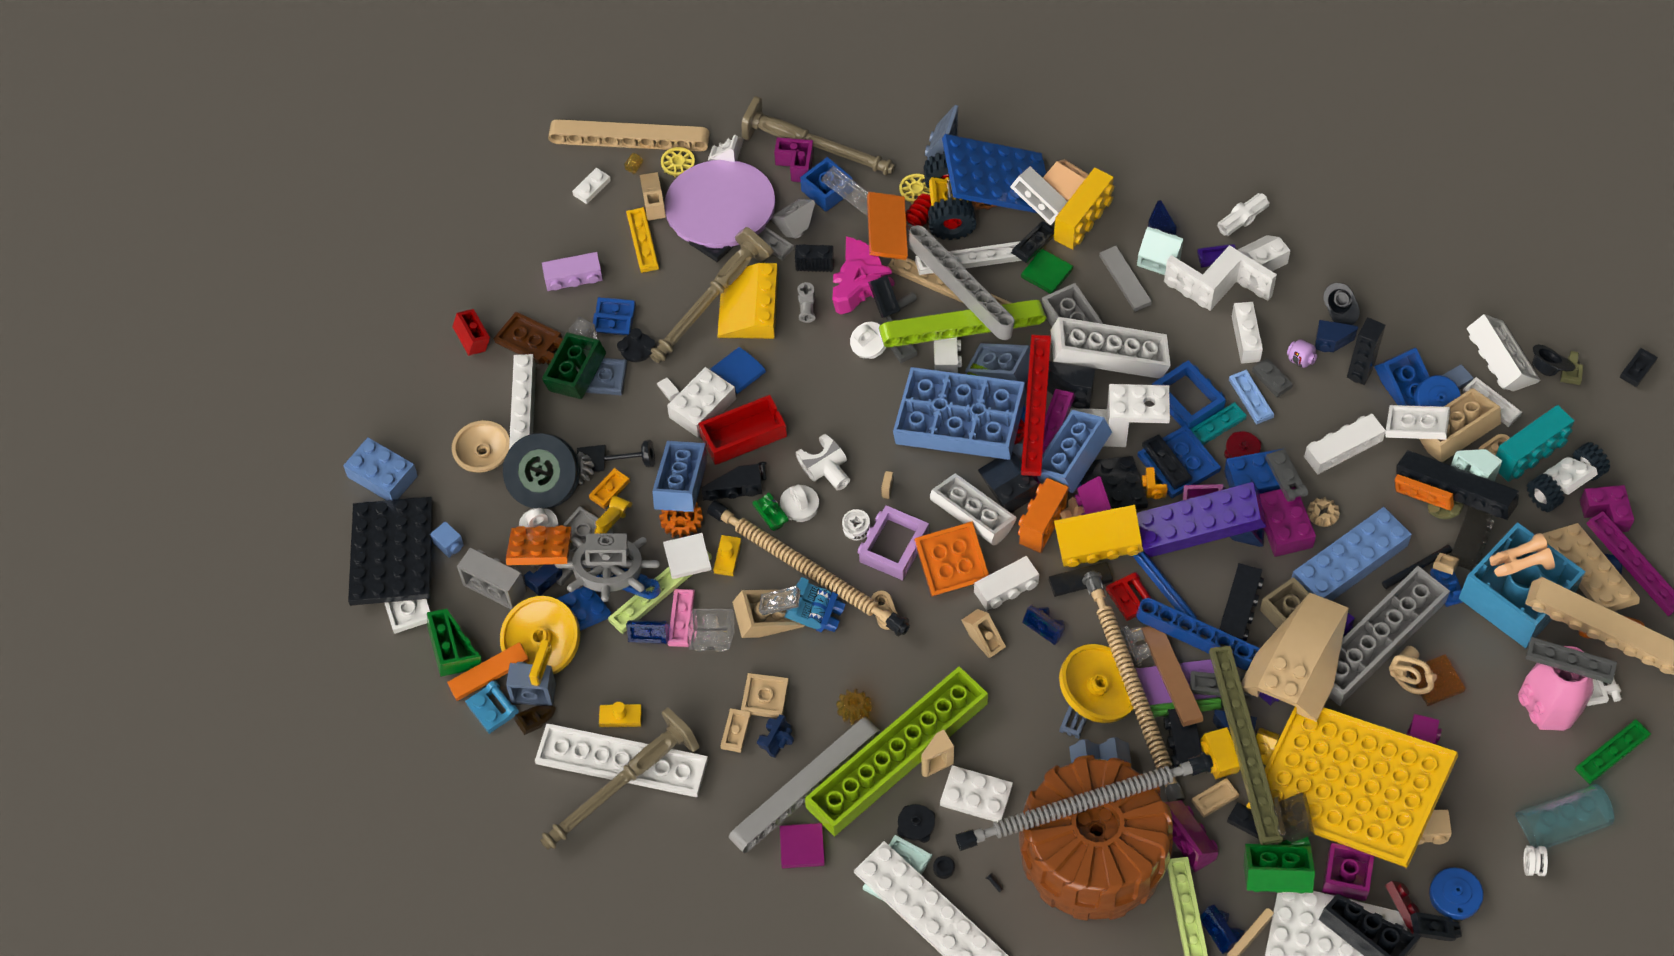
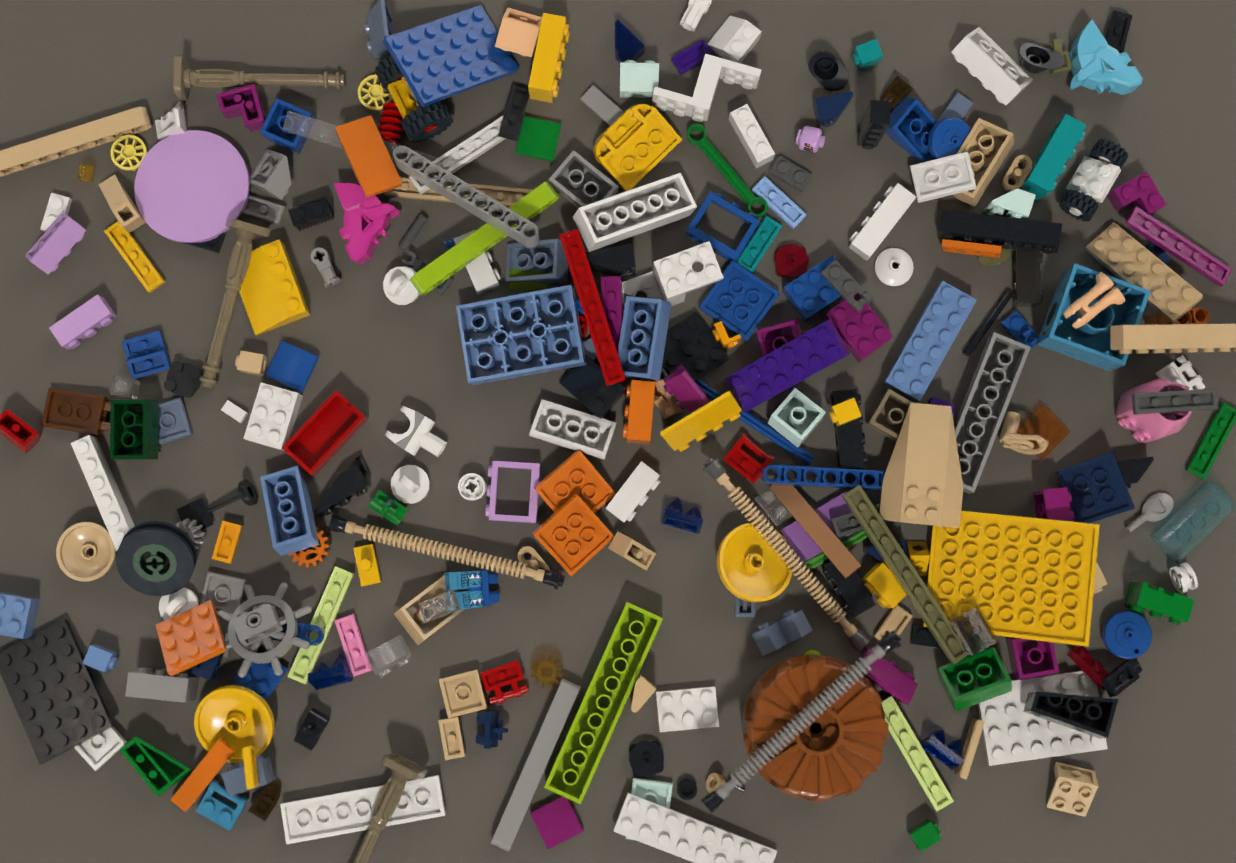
camera: 25 degrees left, 25 degrees up
(581, 204) = (55, 243): none -> lavender brick
(608, 671) = (312, 729): none -> black beam
(612, 515) = (244, 561): yellow piece -> none
(620, 715) = (342, 764): yellow tile -> none
(687, 556) = (332, 586): white tile -> none
(703, 353) = (251, 363): none -> tan brick
(809, 695) = (502, 676): none -> red plate
(884, 296) = (397, 234): black tile -> none
(887, 484) = (483, 434): tan tile -> none
(933, 595) = (573, 535): none -> orange plate
(975, 870) = (714, 781): none -> tan tile
(1039, 194) = (502, 63): white brick -> none
(1072, 580) = (695, 458): black tile -> none
(1135, 300) = (635, 144): none -> yellow plate
(1166, 461) = (729, 308): black tile -> none
(1192, 573) = (796, 417): none -> light aqua brick
(1211, 352) = (726, 170): none -> green piece
(1241, 580) = (844, 412): none -> yellow brick
(1325, 519) = (878, 304): tan gear -> none
(1341, 494) = (887, 273): none -> white dish
(1384, 305) = (867, 54): none -> teal brick
(1398, 345) = (896, 91): none -> dark brown plate
(1446, 563) = (1014, 314): tan tile -> none
(1477, 741) = (1096, 489): none -> dark blue plate
(1501, 874) = (1159, 602): none -> green wedge
(1509, 412) = (998, 118): white tile -> none
(1513, 743) = (1134, 469): none -> black slope
(1528, 792) = (1153, 509): none -> light grey piece
(1611, 387) = (1100, 65): none -> medium azure animal

